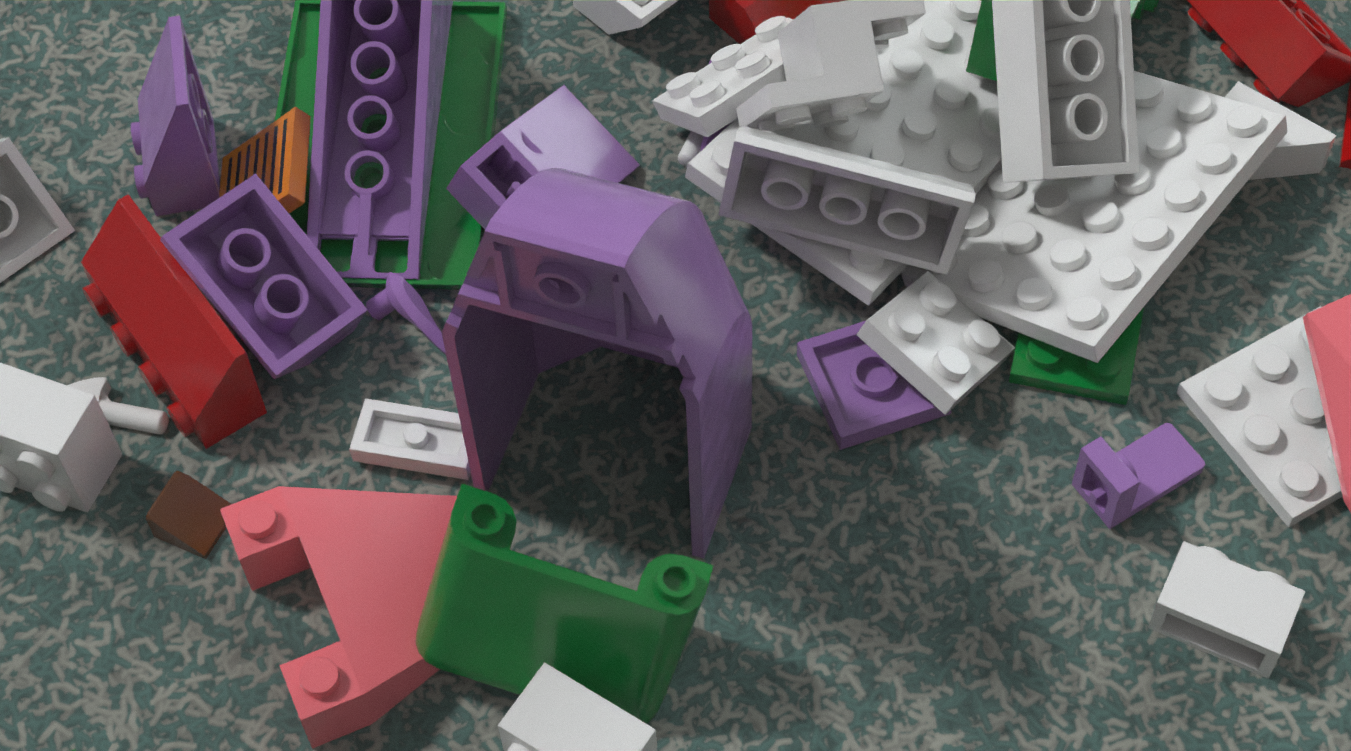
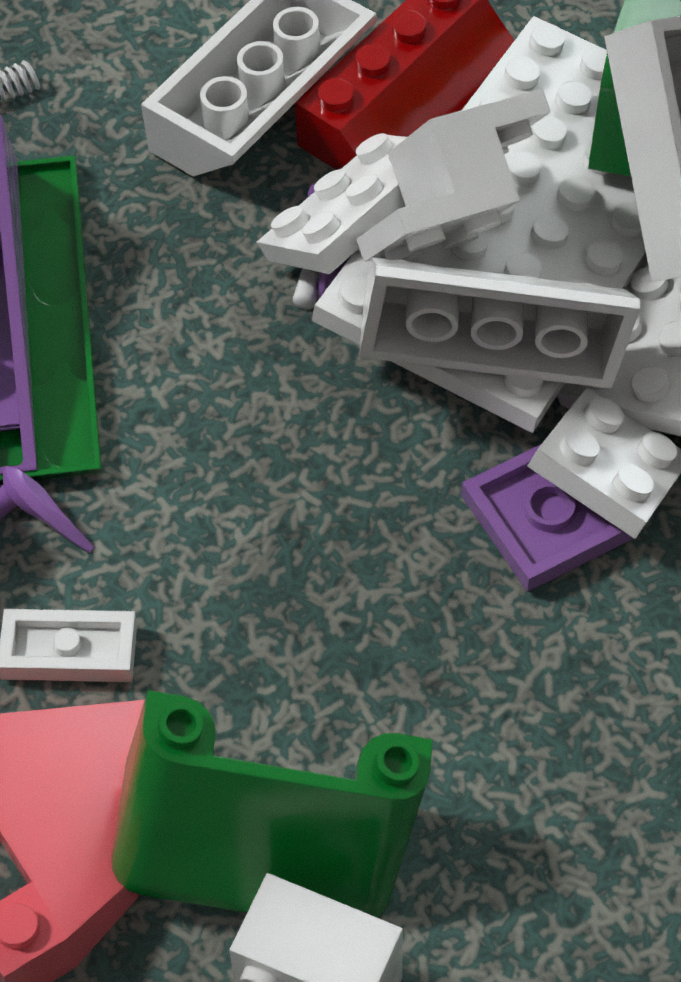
camera: 10 degrees left, 0 degrees up
(548, 136) = (152, 340): medium lavender slope -> none
(612, 268) = (271, 437): medium lavender windscreen -> none

